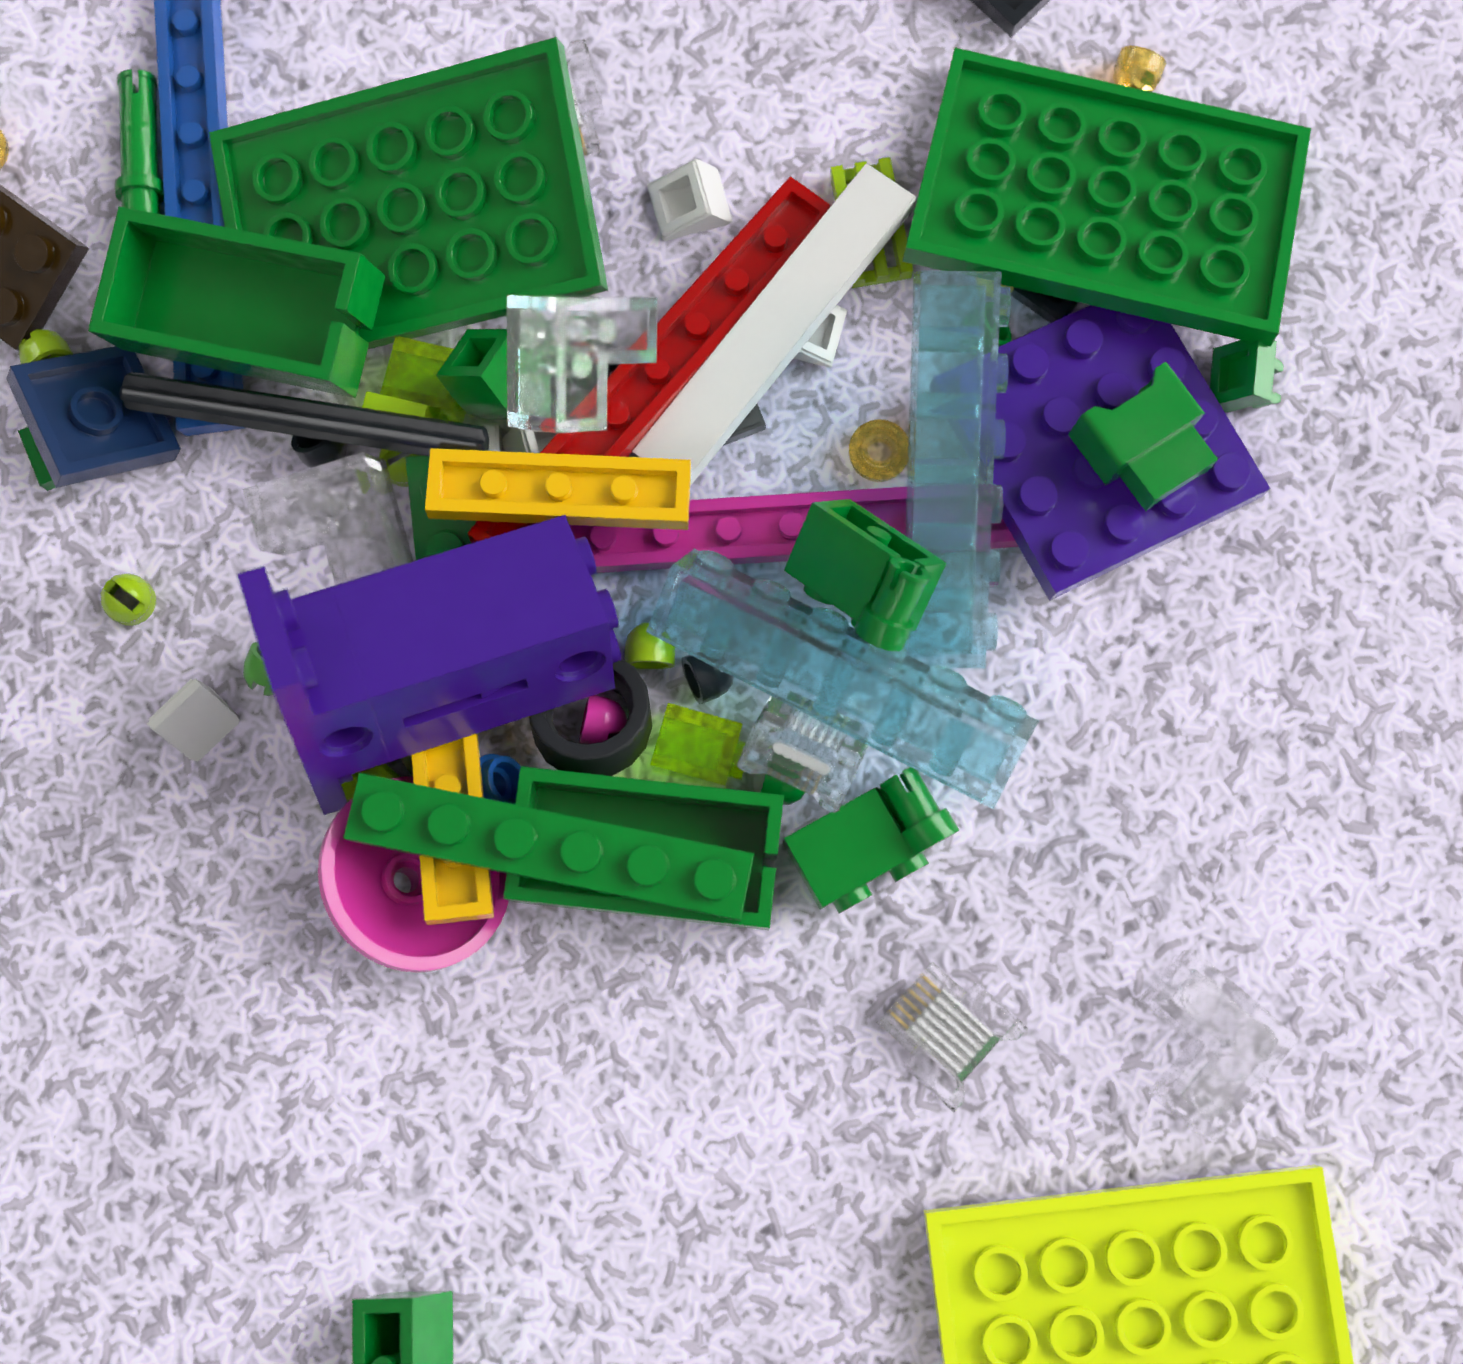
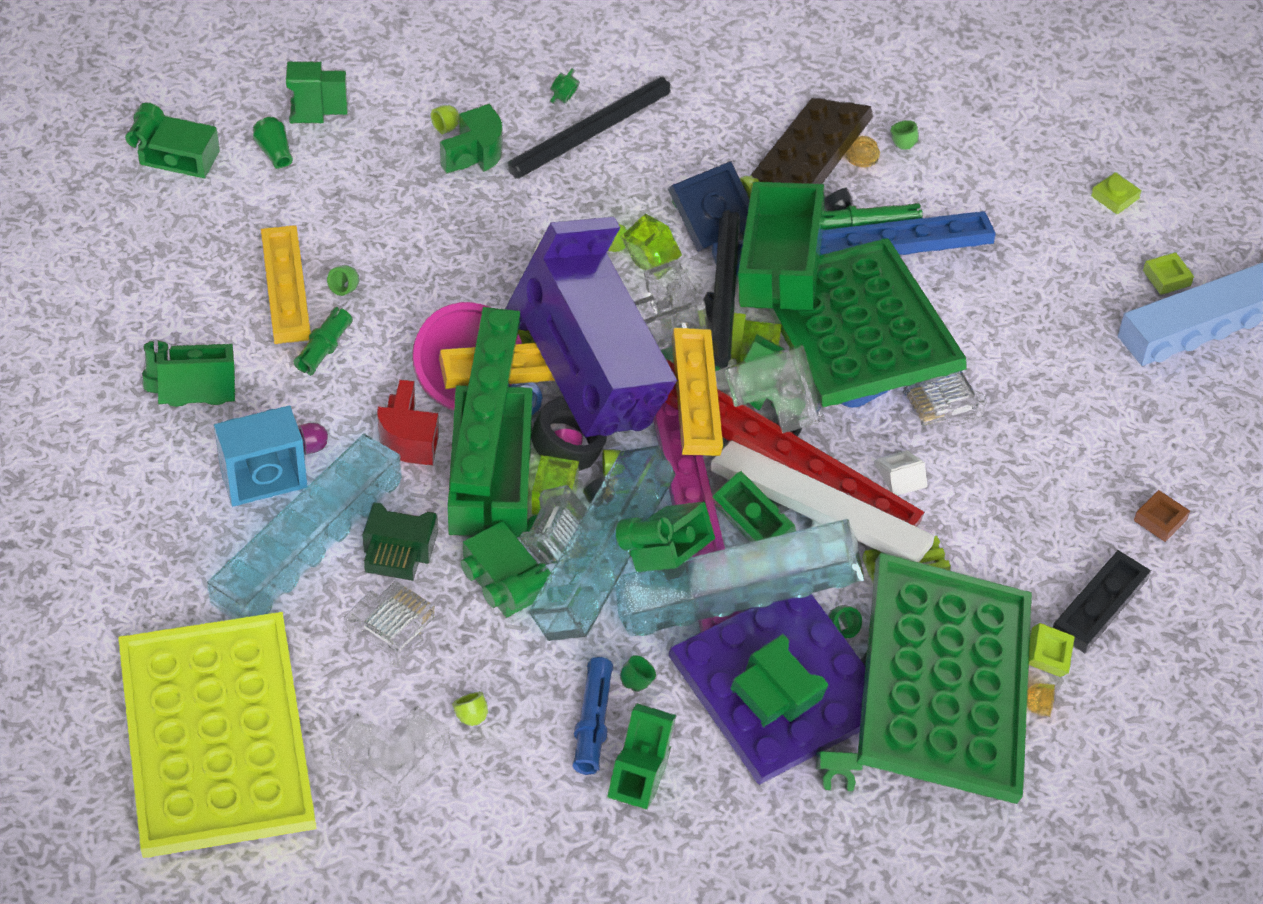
camera: 80 degrees right, 30 degrees down
(92, 206) = (838, 200): none -> black hinge
(174, 1099) = (339, 276): none -> bright green hinge
(178, 533) = (650, 243): none -> clear neon green brick
(180, 1196) = (285, 284): none -> yellow plate
(327, 1129) = (323, 341): none -> green pin
(548, 1152) = (313, 437): none -> magenta hinge
(561, 991) = (408, 431): none -> red brick
(611, 1252) = (261, 455): none -> dark azure brick
(756, 1171) = (305, 530): none -> clear light blue brick
(792, 1017) = (398, 542): none -> dark green piece
(800, 433) = (751, 510): none -> green brick
(1057, 41) = (1050, 650): none -> lime plate
(1068, 651) = (637, 673): none -> green hinge
(1114, 915) = (471, 708): none -> lime hinge
(1153, 730) = (591, 728): none -> blue pin
(1241, 662) = (643, 757): none -> green brick

